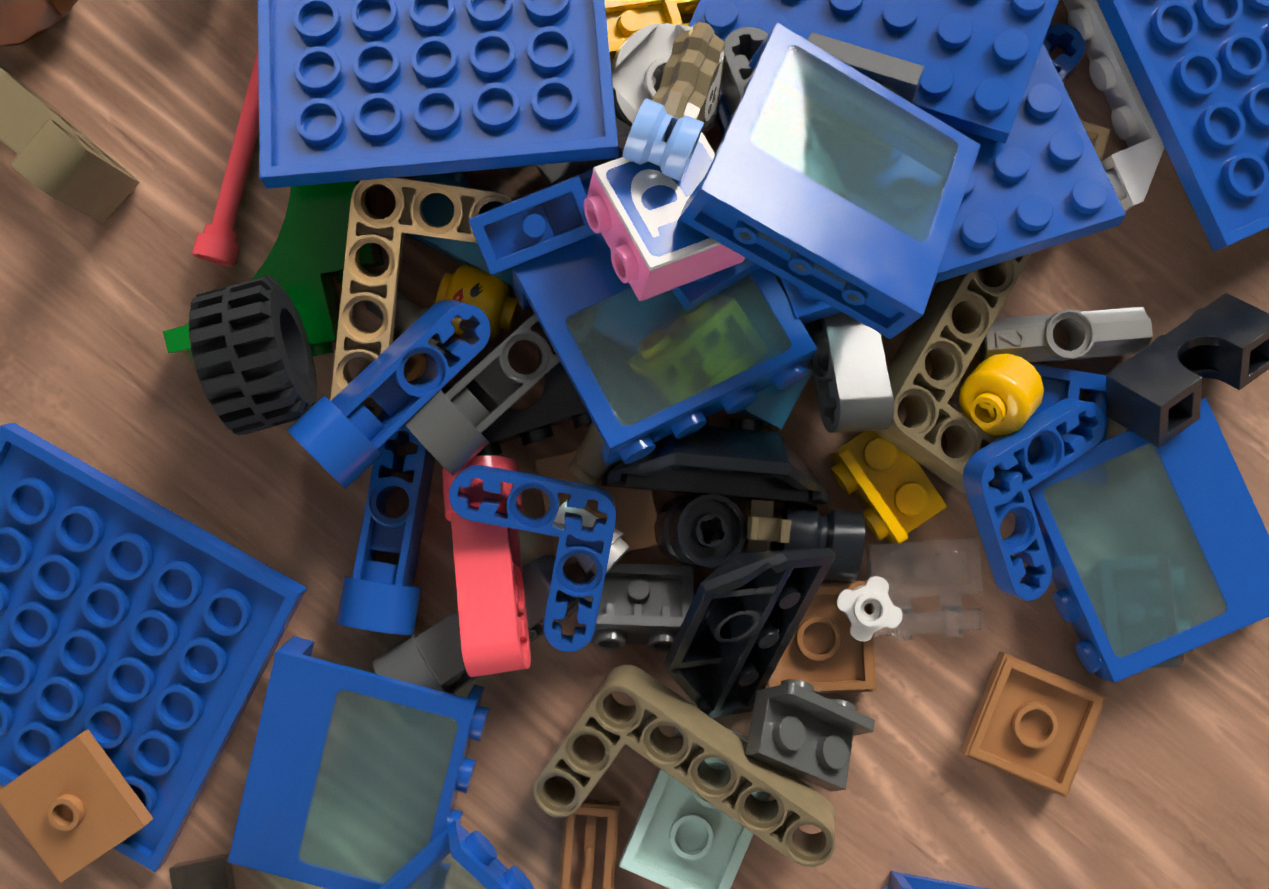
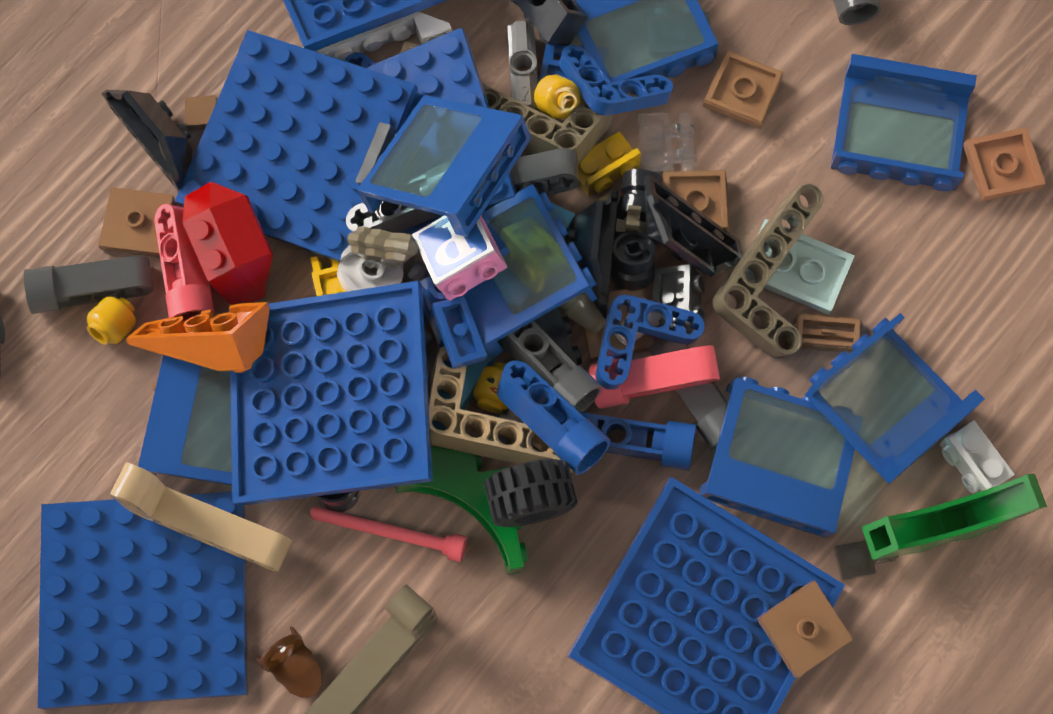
camera: 90 degrees left, 15 degrees down
(648, 138) = (422, 245): light blue wheel -> none
(805, 733) = (749, 205): dark grey bracket -> none
(884, 614) = (676, 178): white plate -> none

